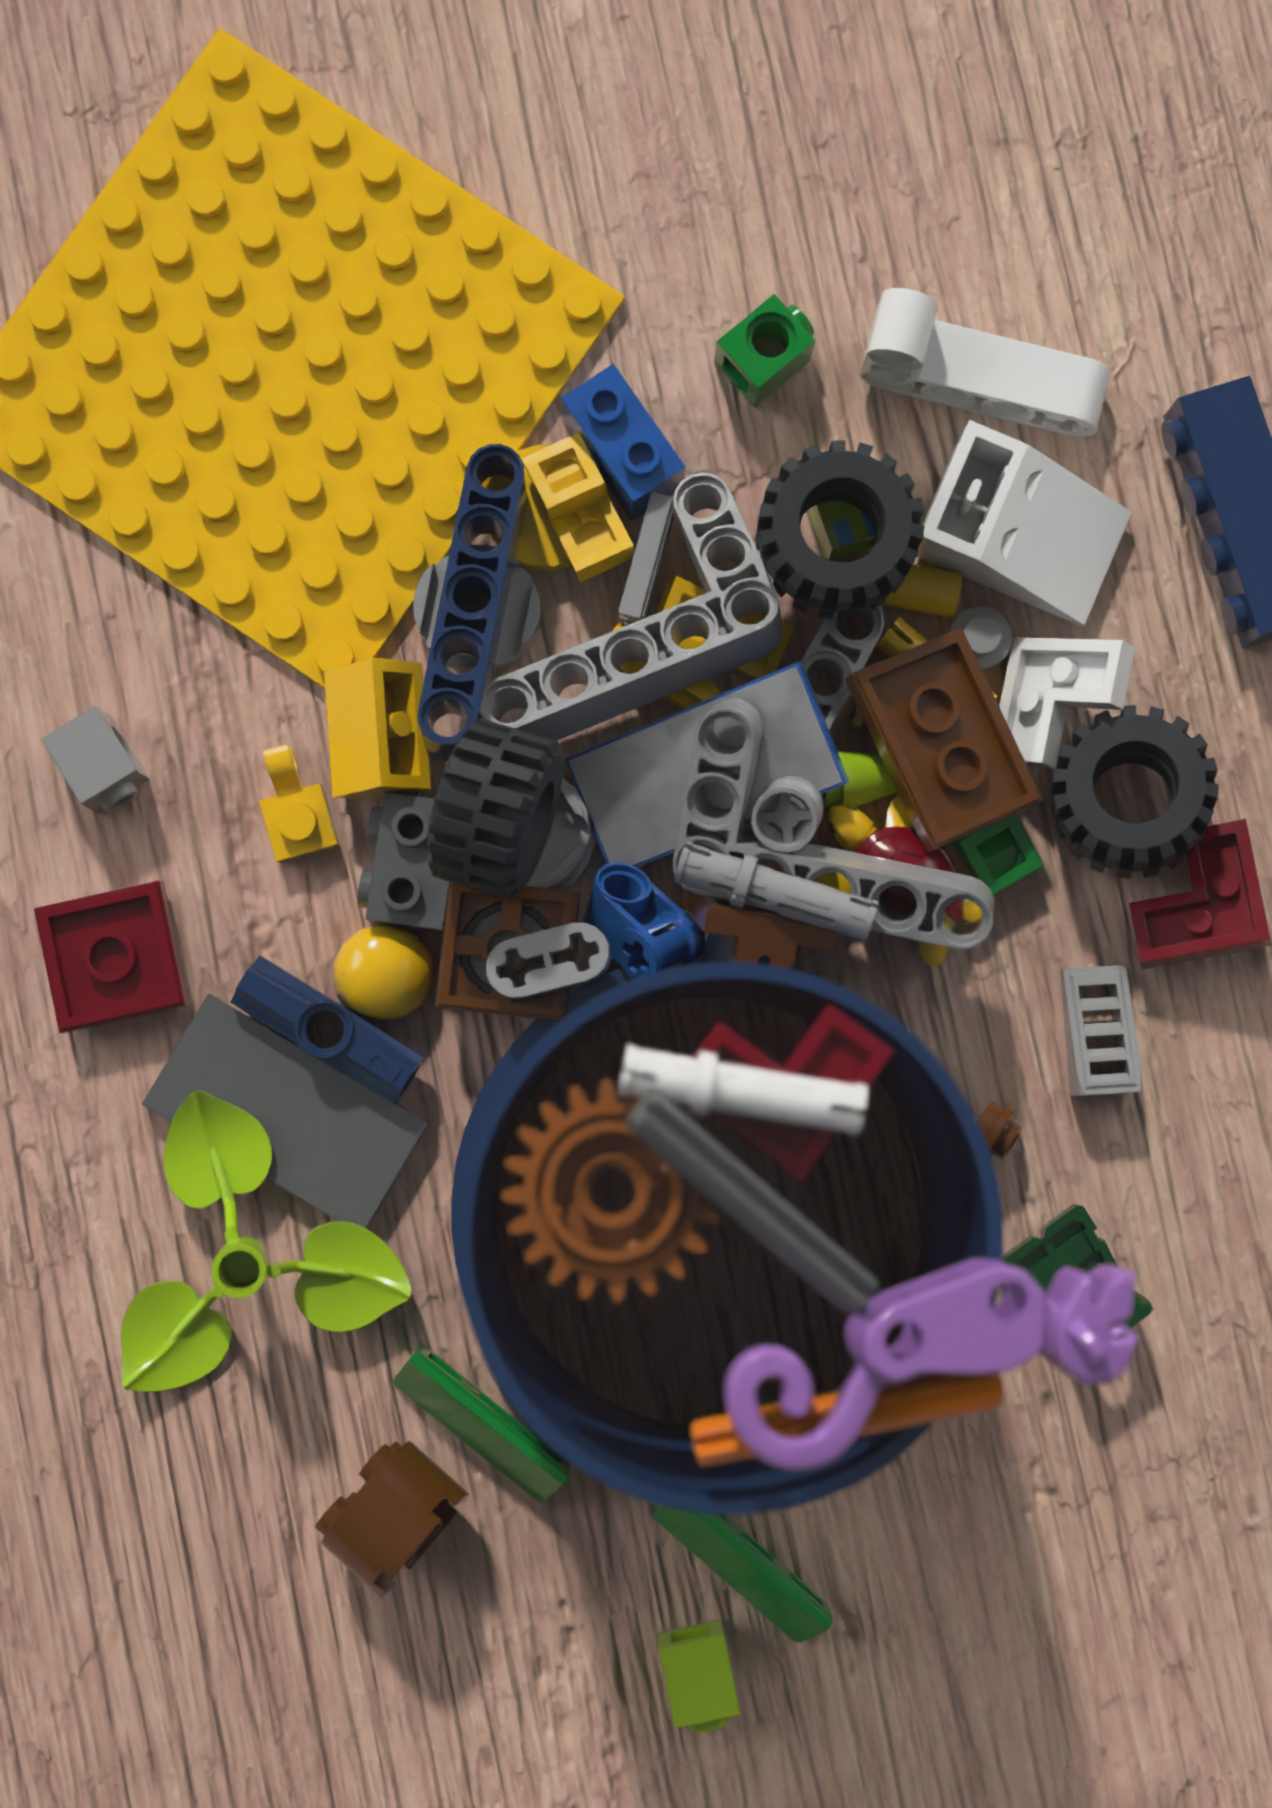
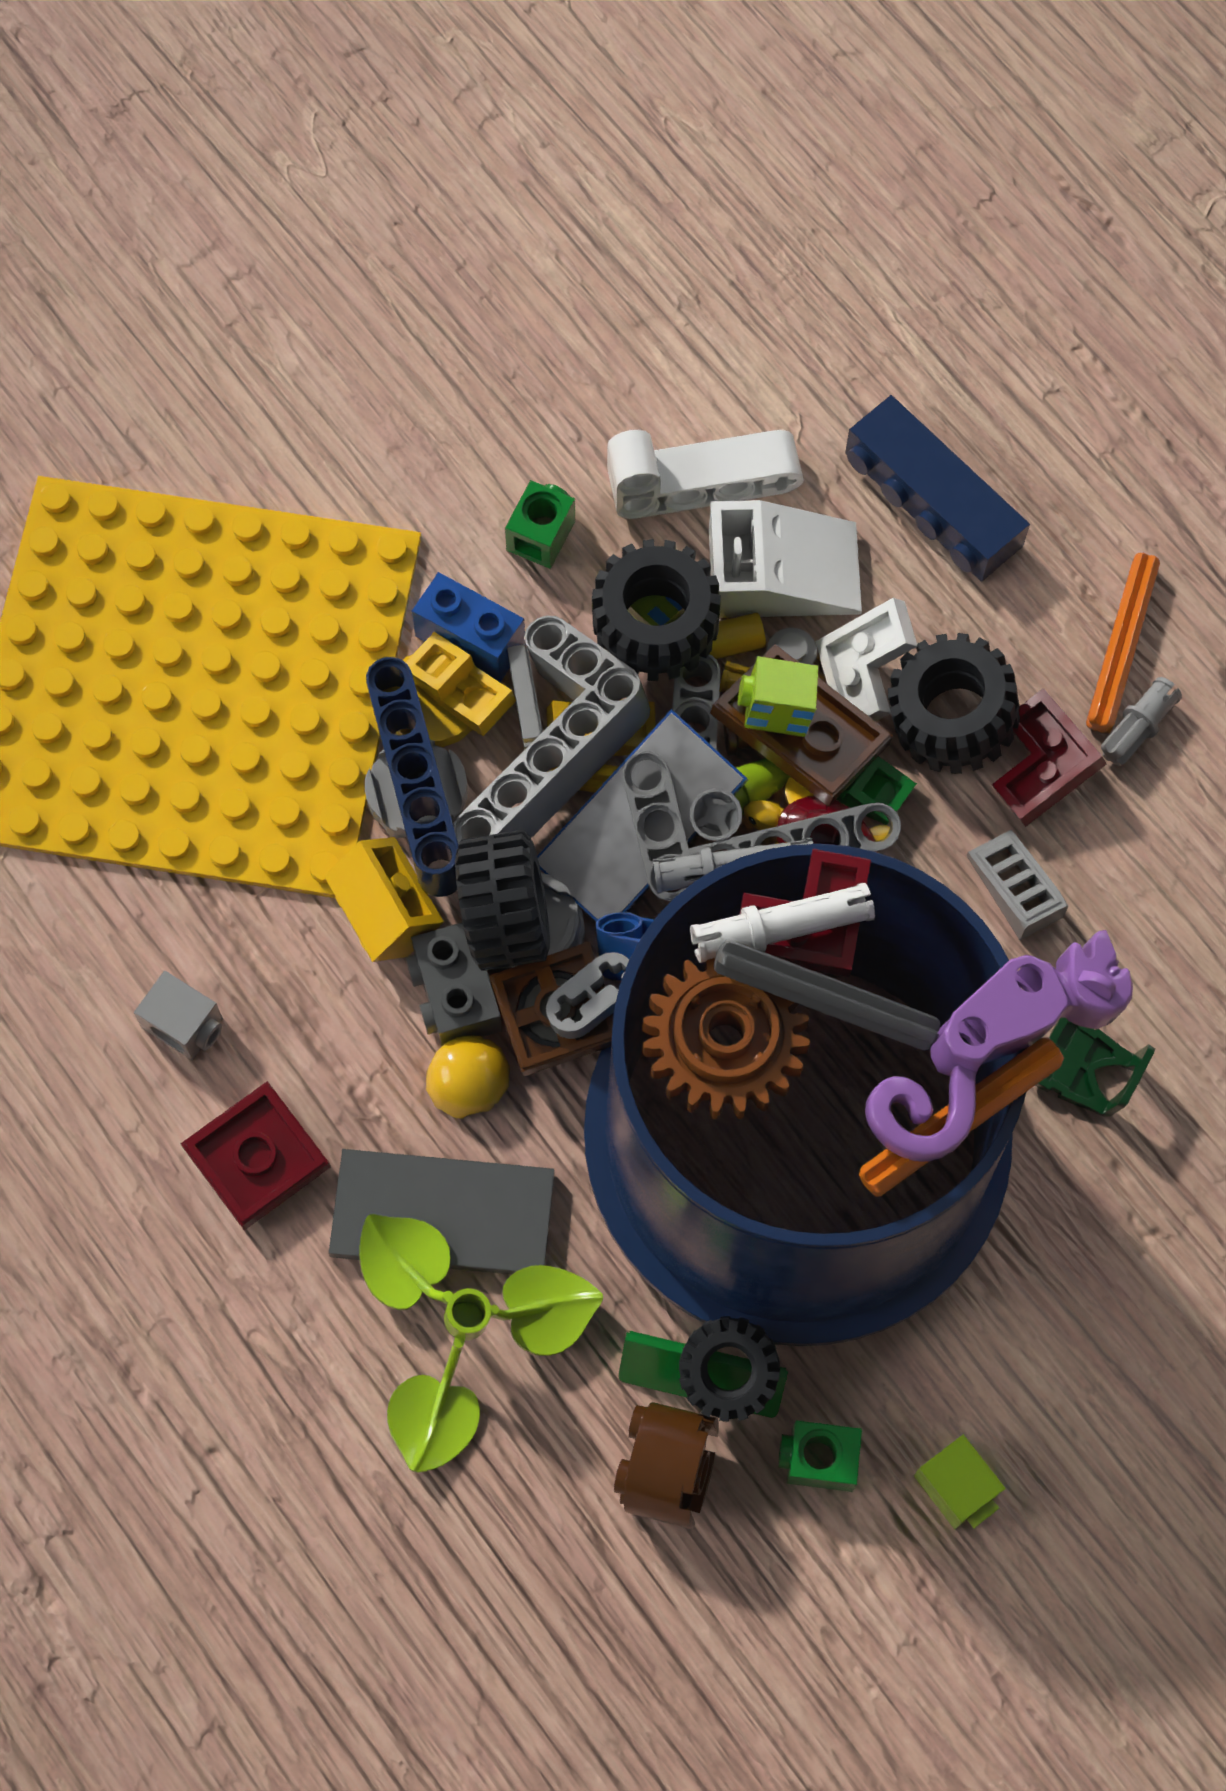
camera: 20 degrees left, 15 degrees down
(291, 1010) = (411, 1127): dark blue piece -> none
(298, 815) = (348, 992): yellow plate -> none
(476, 1477) = (722, 1402): none -> black tyre
(572, 1604) = (845, 1447): none -> green brick
(749, 1571) = (951, 1386): green slope -> none
(930, 703) = (779, 696): none -> lime brick

